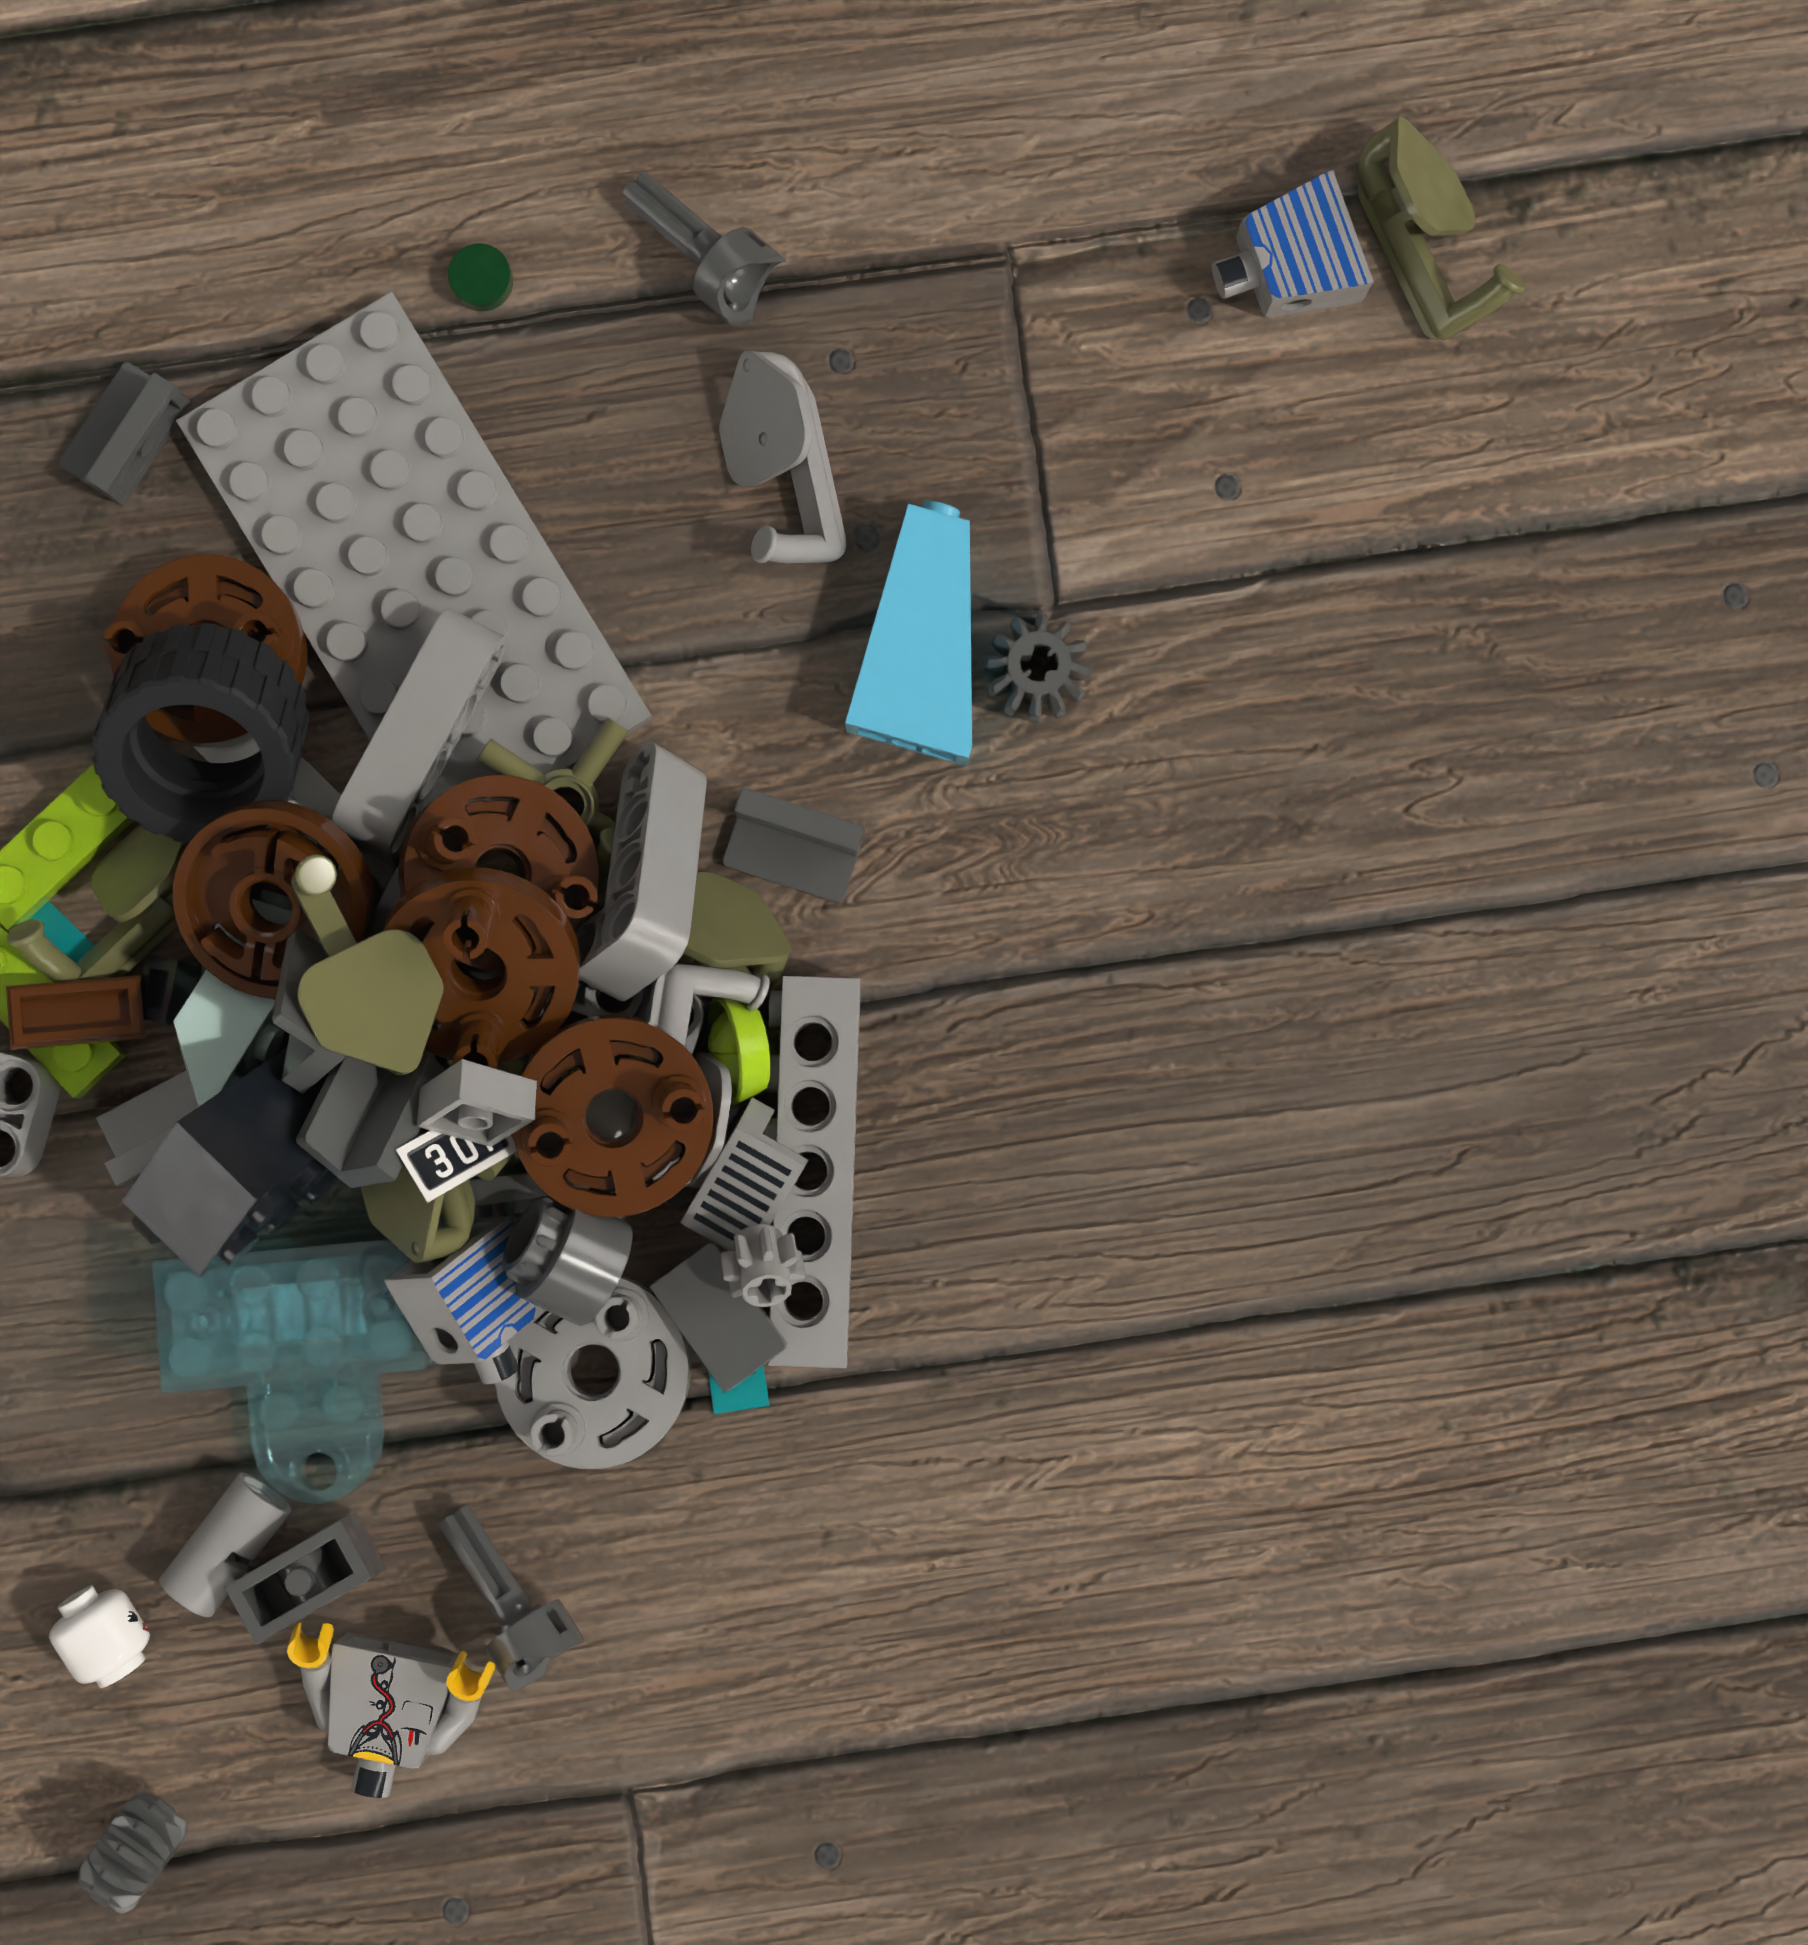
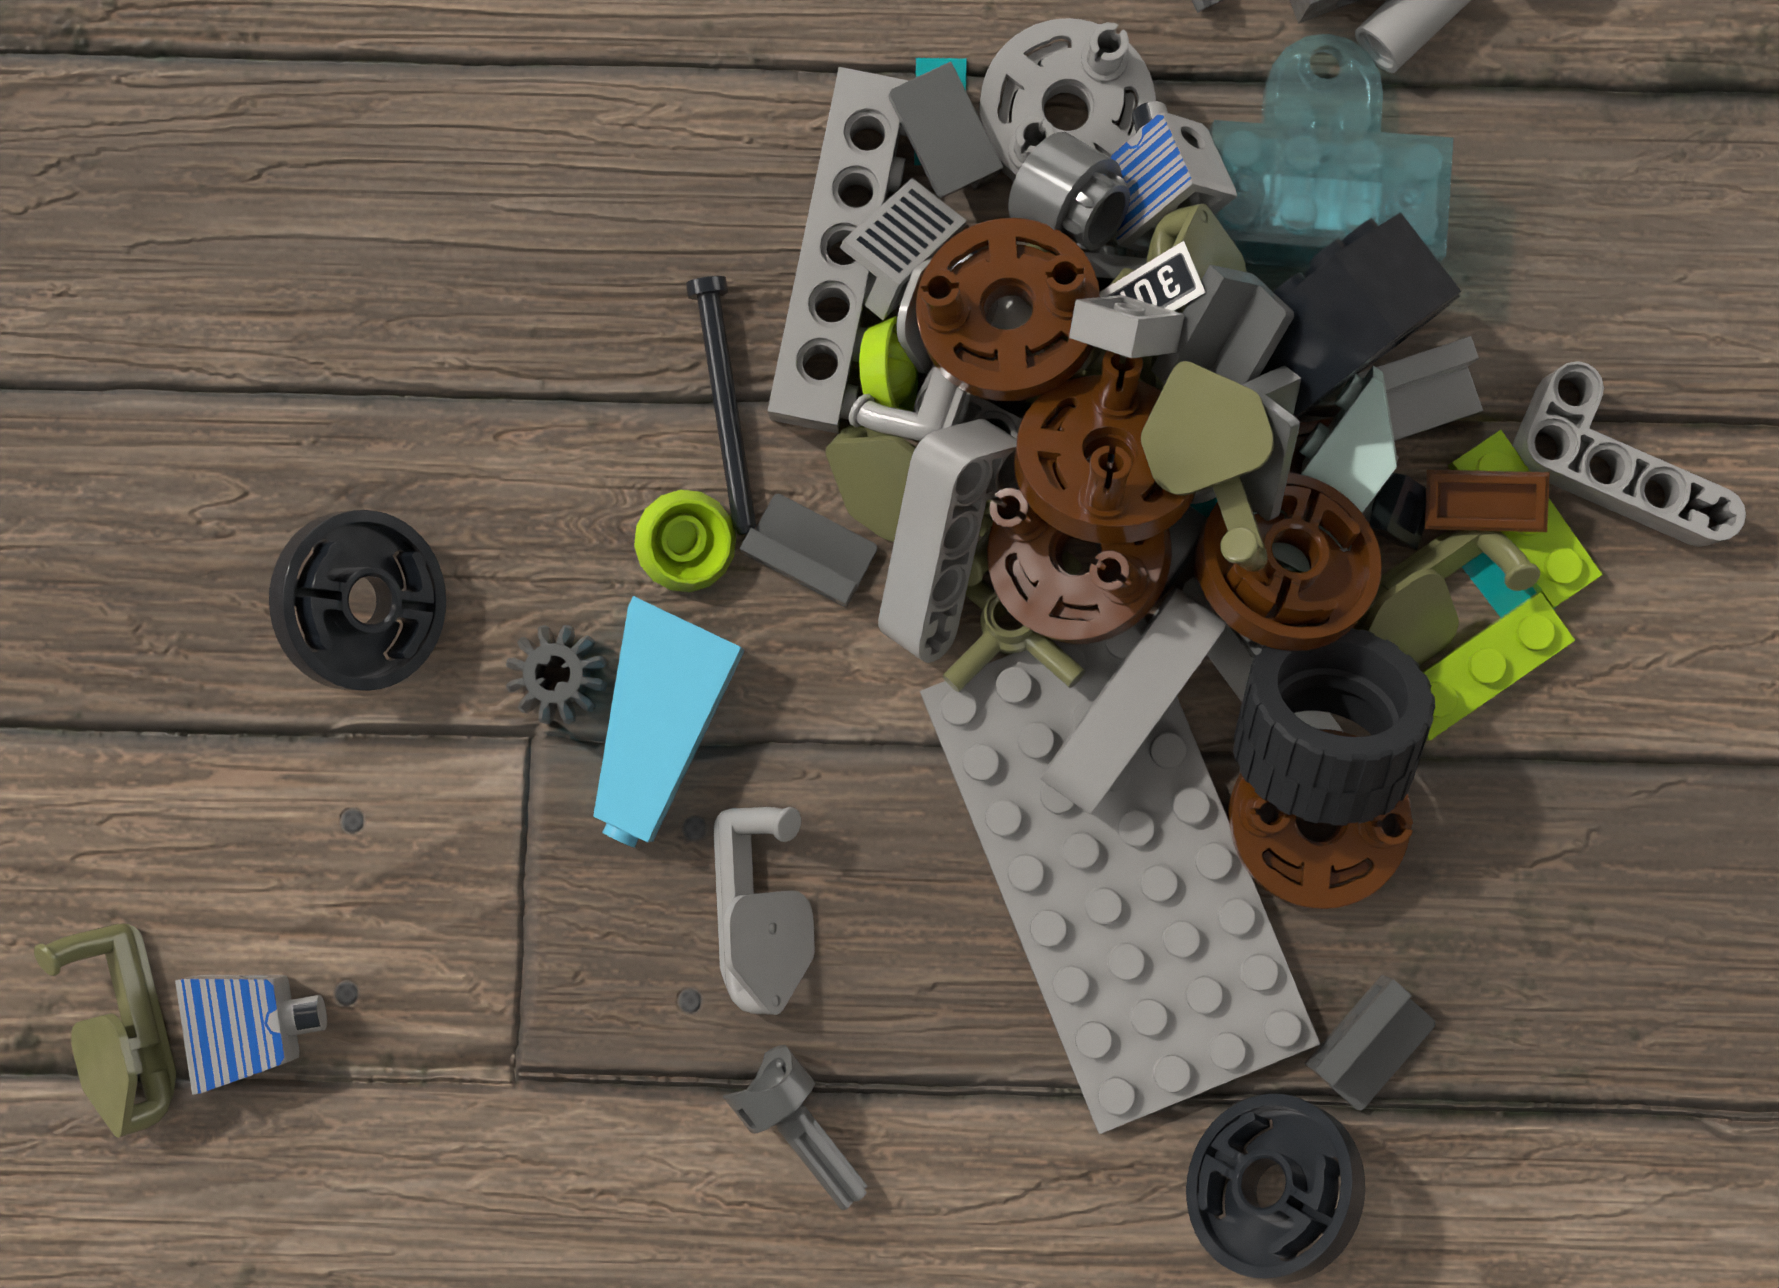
camera: 165 degrees left, 0 degrees up
(173, 304) = (1312, 1153): none -> black piece
(480, 277) = (1014, 1135): dark green tile -> none
(762, 1265) = (896, 161): light grey gear -> none
(911, 991) = (707, 293): none -> black bar
(945, 844) = (672, 528): none -> lime hat
(1300, 713) = (337, 645): none -> black piece

